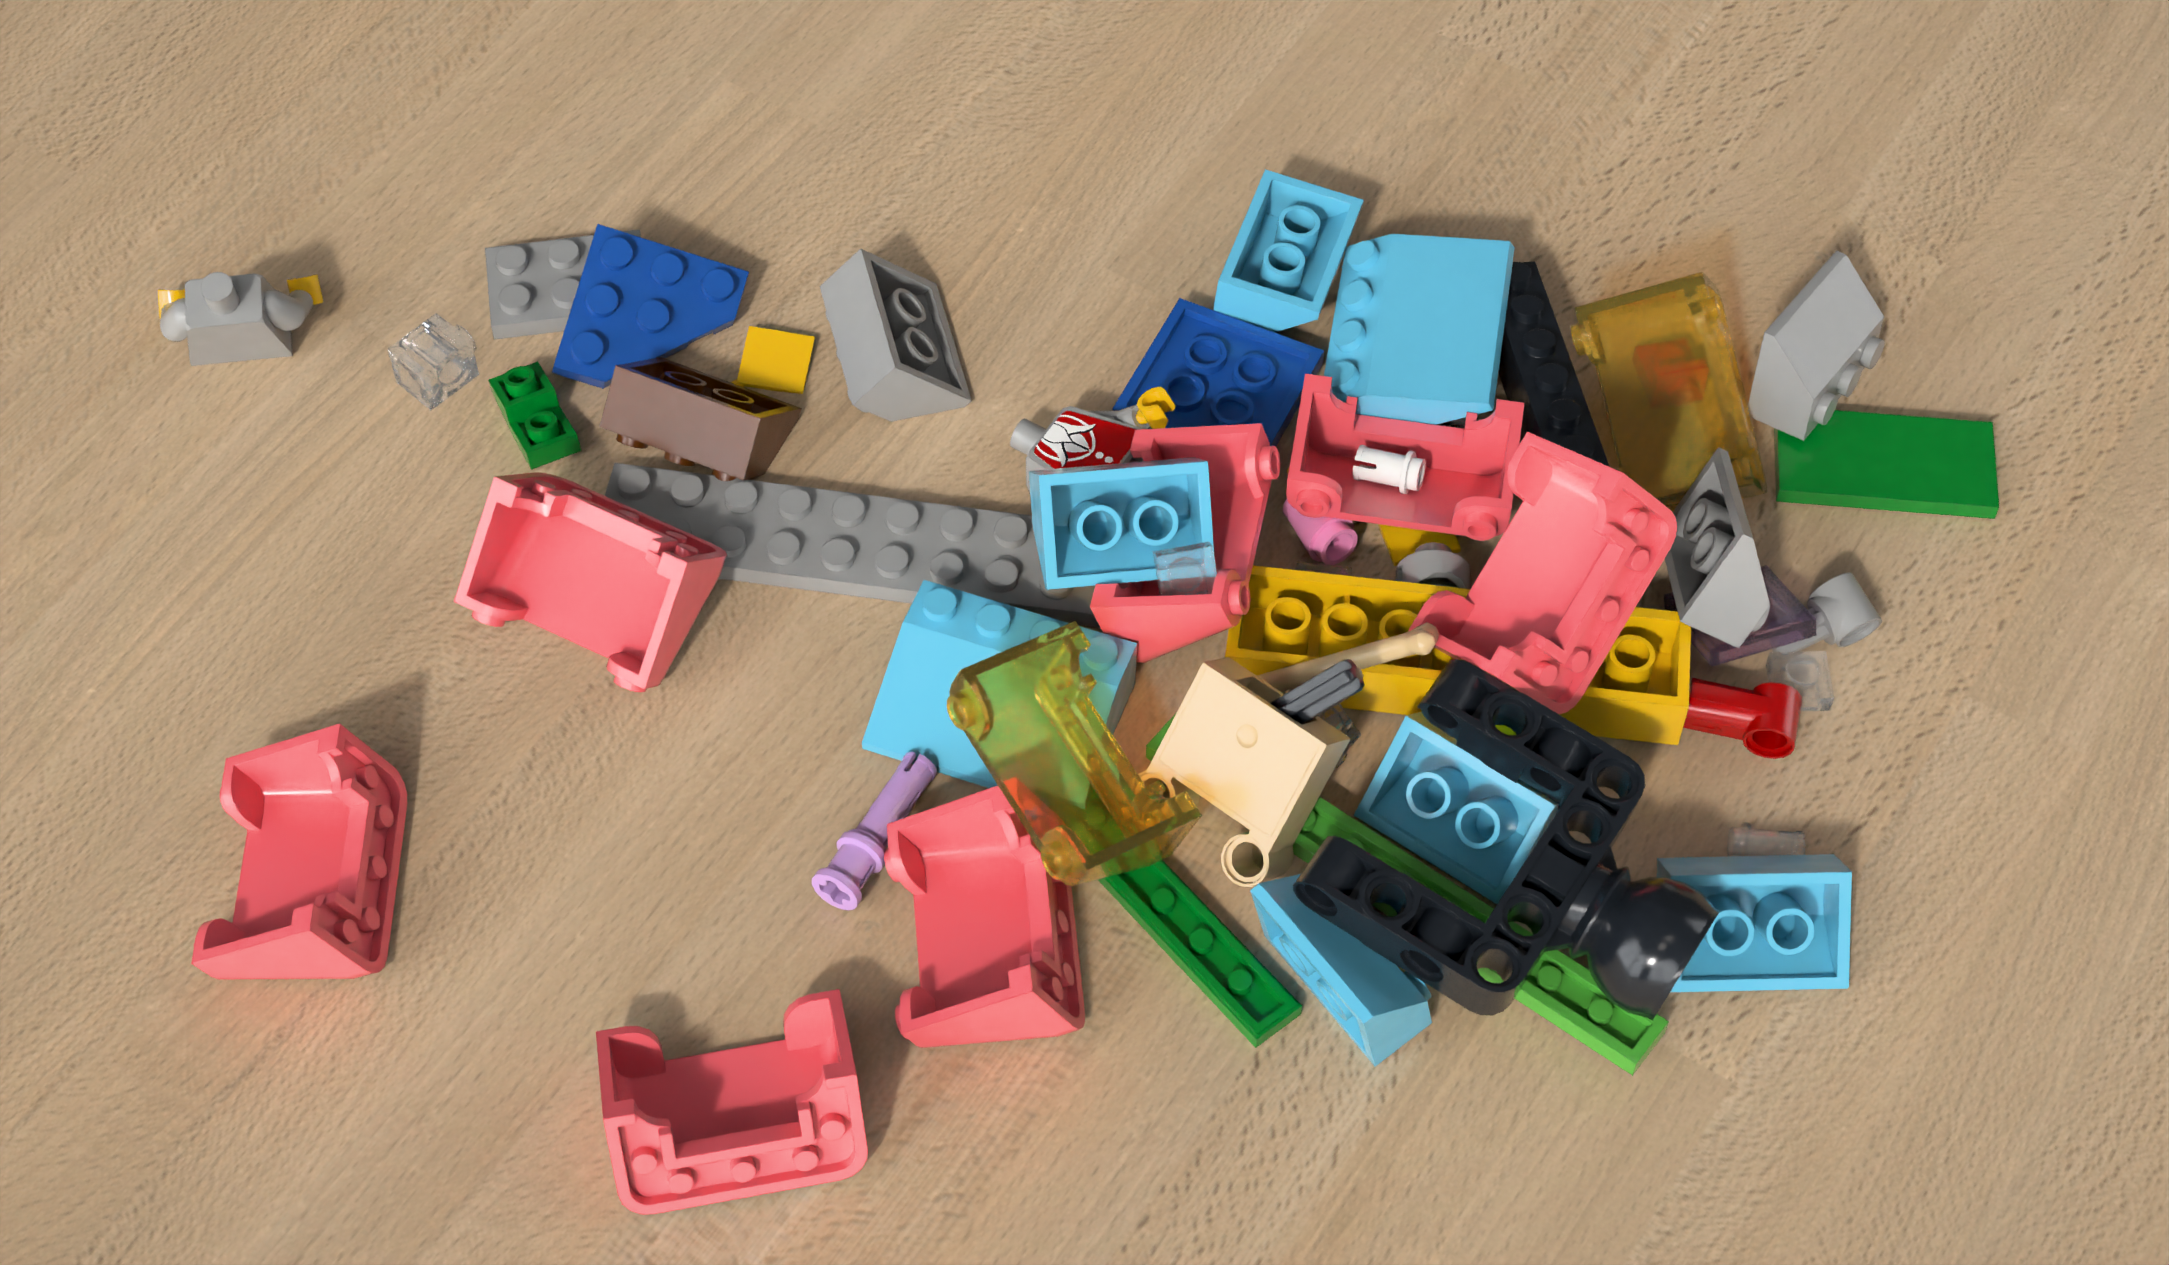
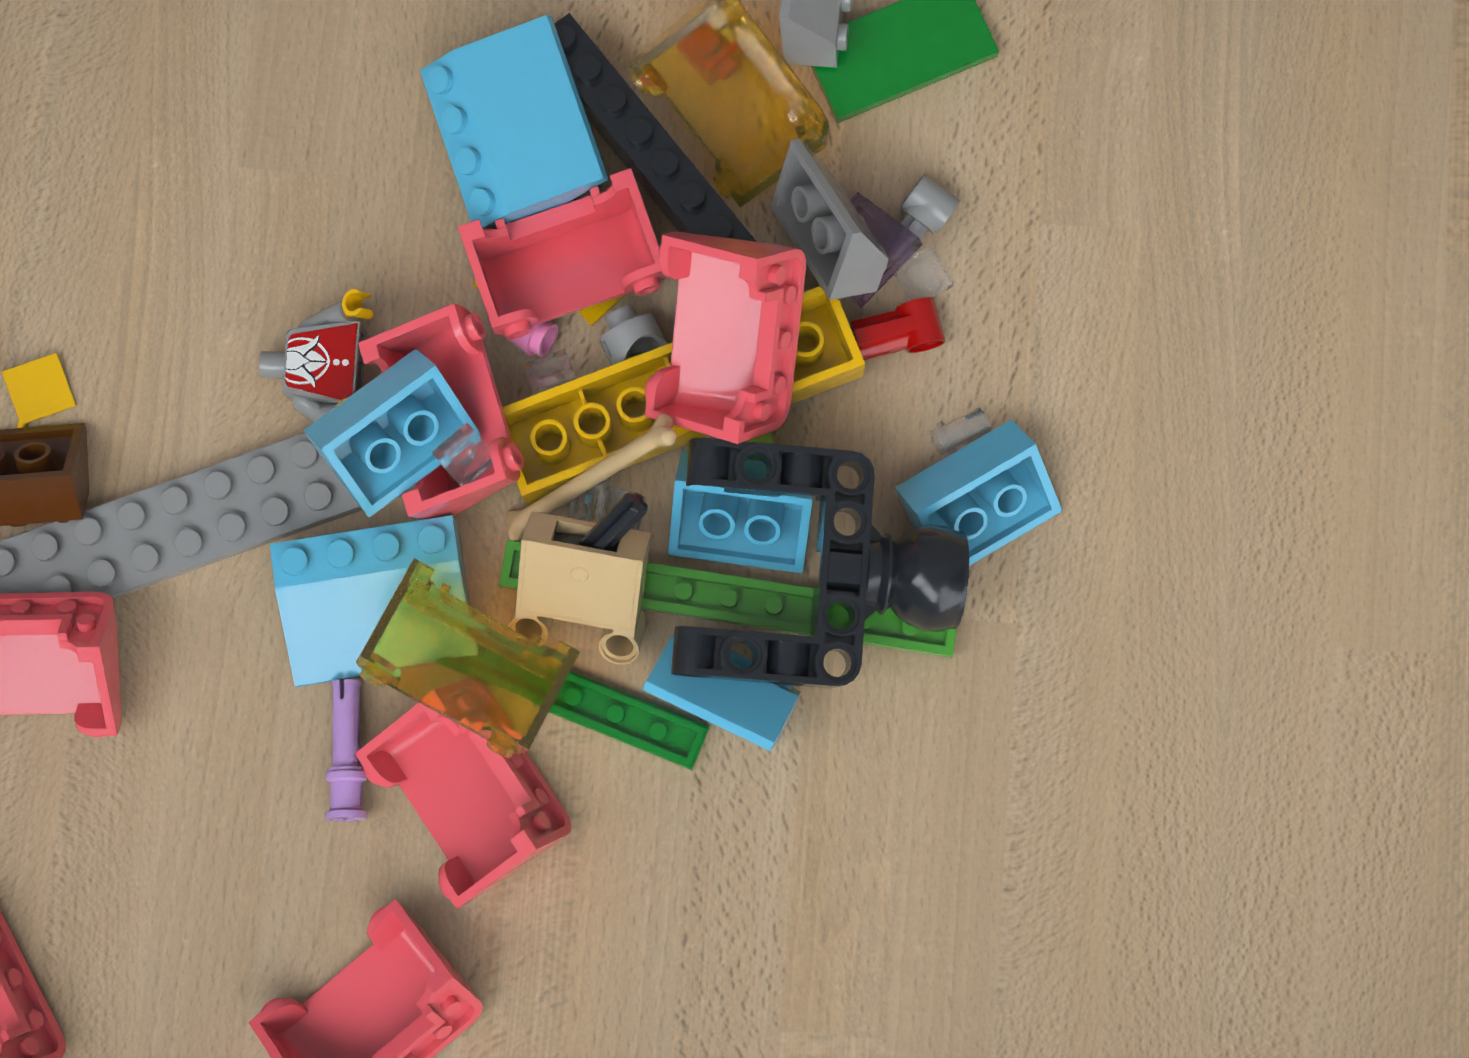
camera: 25 degrees left, 25 degrees up
(893, 340) = (120, 329): light grey slope -> none
(1223, 371) = (387, 238): blue plate -> none
(1286, 253) = (379, 100): medium azure slope -> none
(1392, 468) = (553, 259): white pin -> none

